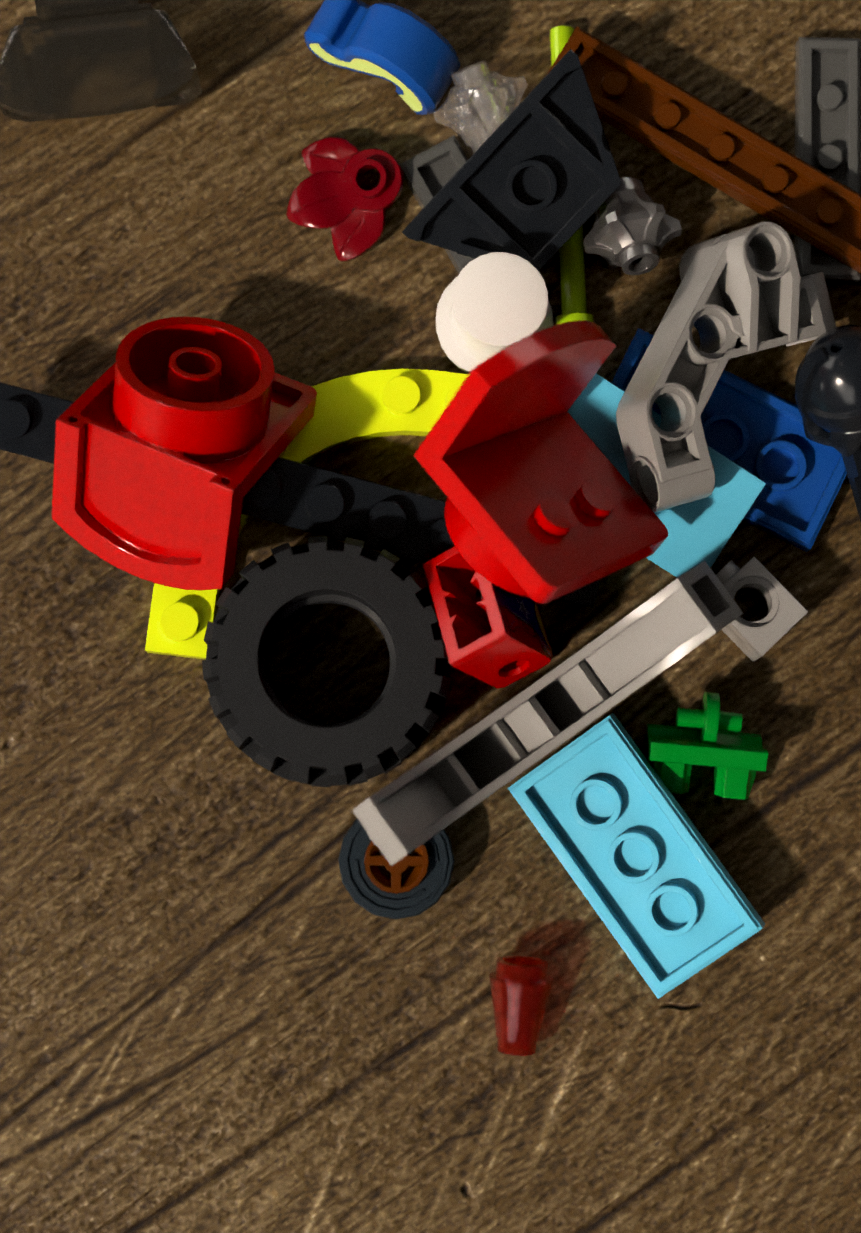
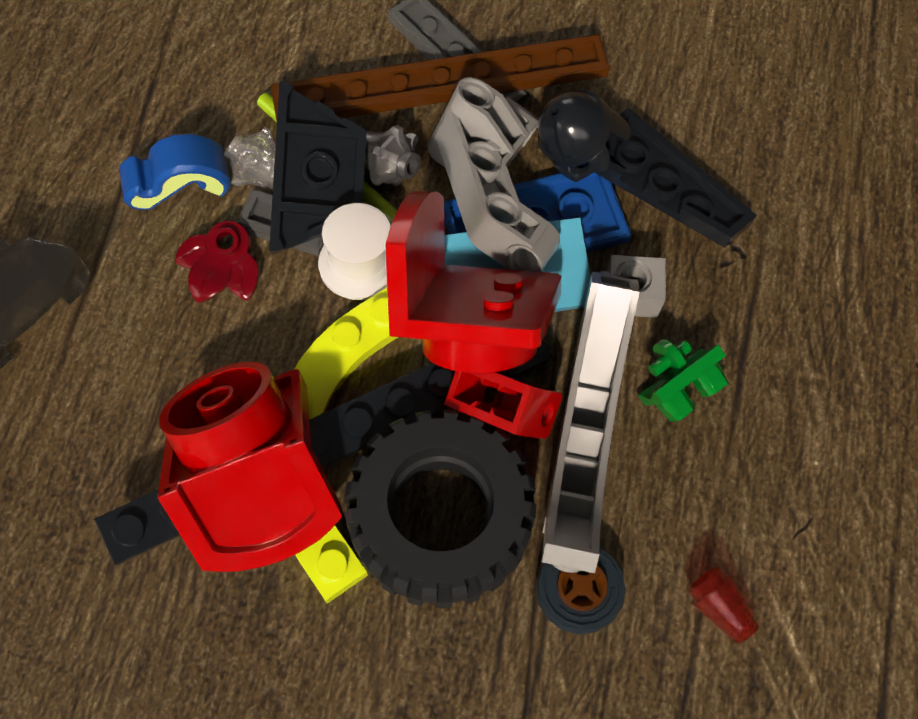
camera: 40 degrees left, 15 degrees down
(636, 856) = (705, 465): medium azure tile -> none

